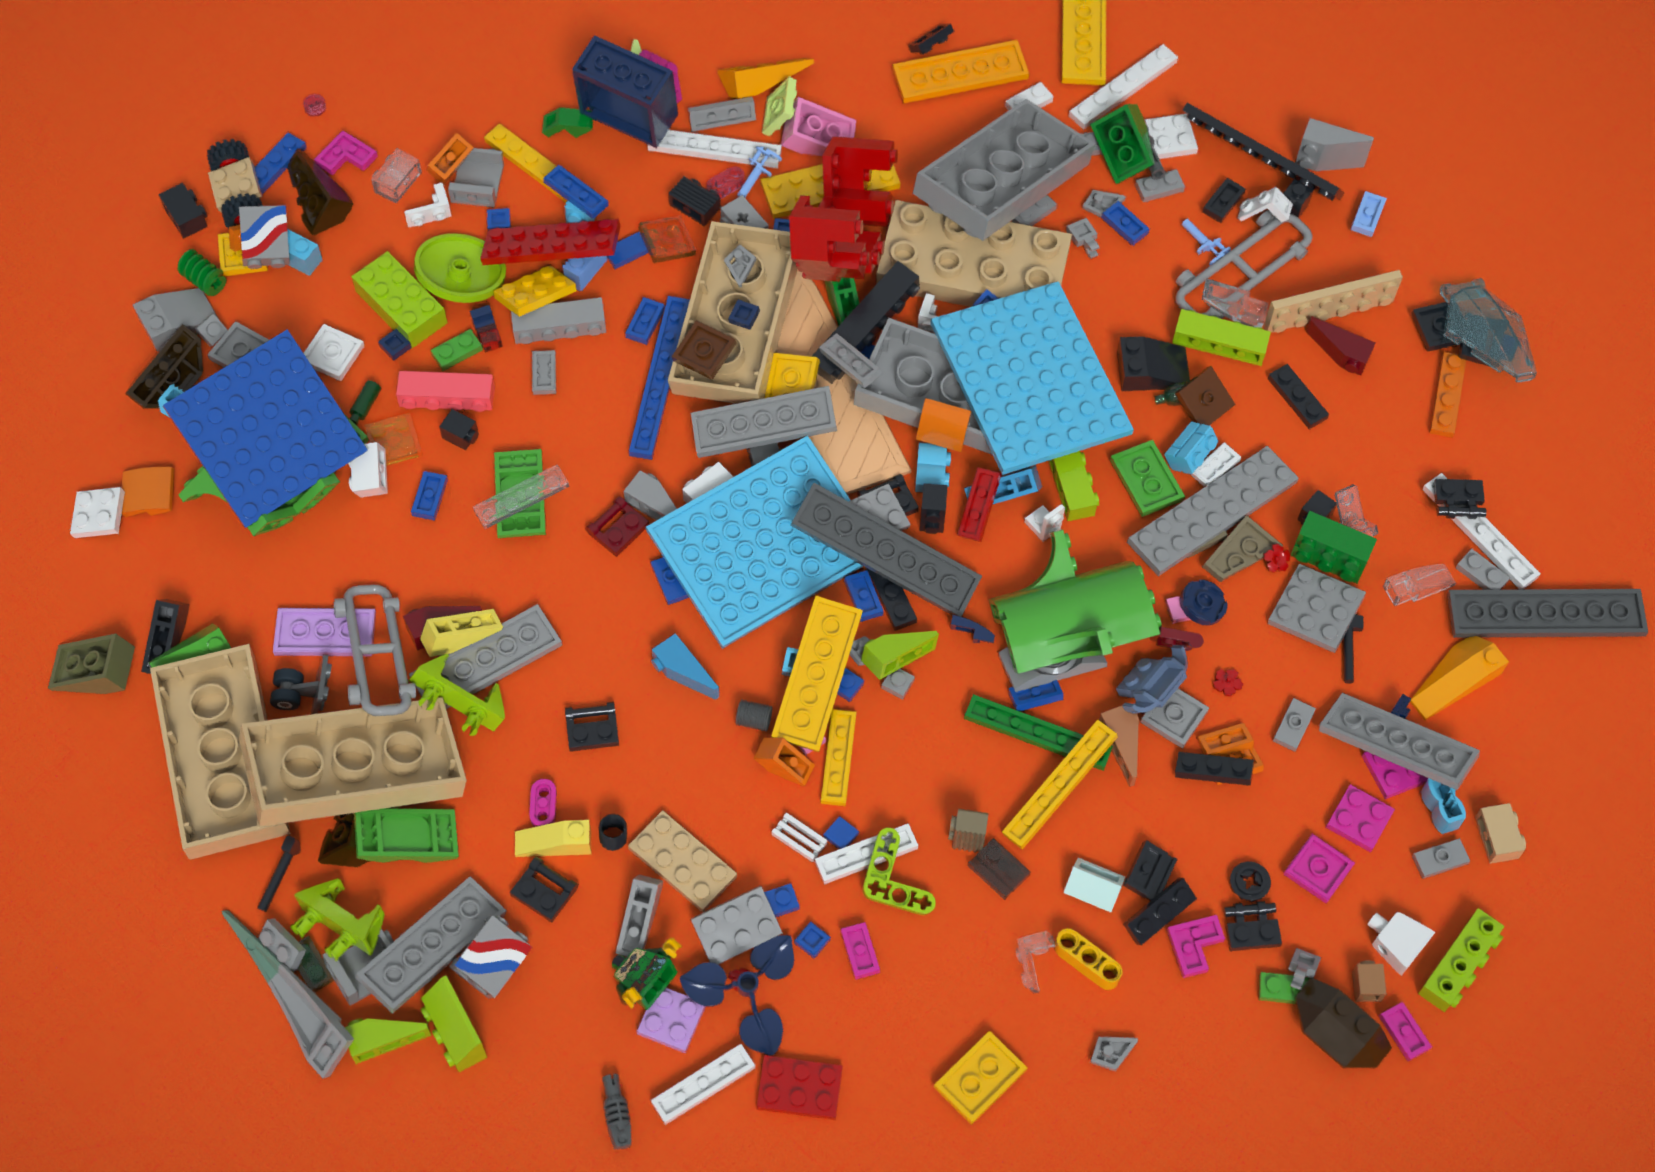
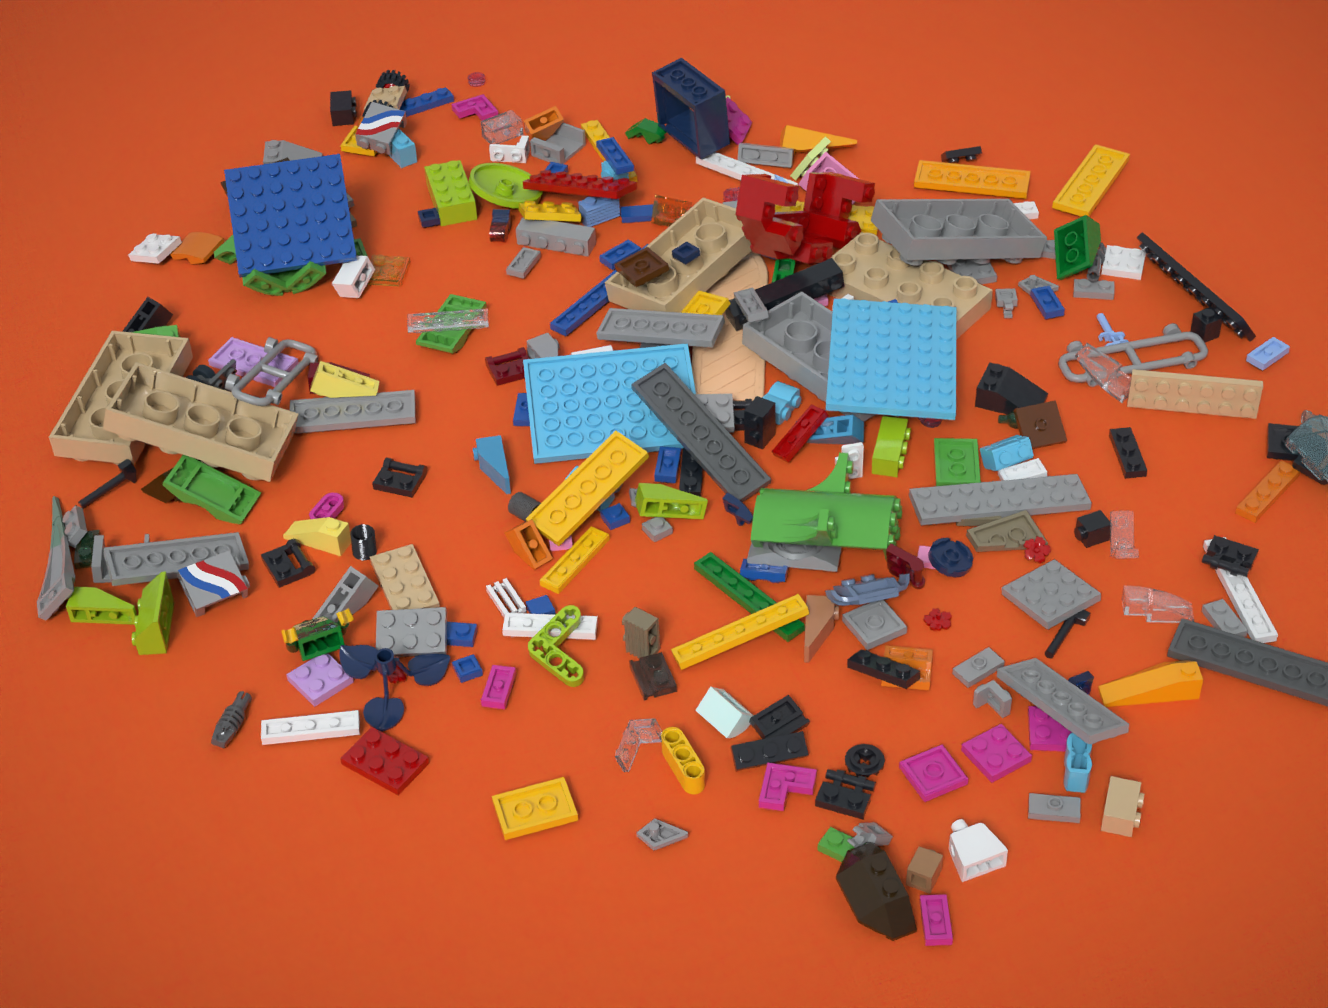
camera: 30 degrees right, 20 degrees down
(92, 665) = (84, 328): olive slope -> none
(201, 272) = (326, 140): green piece -> none
(321, 197) = (441, 124): dark brown wedge -> none
(322, 909) = (123, 520): lime hose -> none
(333, 352) = (382, 209): white plate -> none
(364, 401) = (383, 242): dark green cylinder -> none
(429, 495) = (386, 306): blue plate -> none
(445, 391) = (443, 250): coral brick -> none
(456, 350) = (471, 234): bright green plate -> none
(459, 429) = (436, 275): black brick -> none
(487, 713) = (297, 400): lime hose -> none
(694, 200) = (707, 190): black brick -> none
(742, 265) = (710, 228): light grey piece -> none
(943, 425) = (798, 366): orange slope -> none
(1123, 86) = (1117, 220): white plate -> none
(1221, 337) = (1081, 391): lime brick -> none
(1224, 200) = (1142, 311): black plate -> none
(1272, 200) = (1182, 316): white bracket -> none
(1332, 147) = (1258, 298): light grey slope -> none
(1332, 756) = (995, 696): none -> light grey bracket
(1333, 547) = (1089, 552): green piece -> none
(1344, 347) = (1190, 431): dark red slope -> none
(1461, 960) = (1023, 886): lime brick -> none

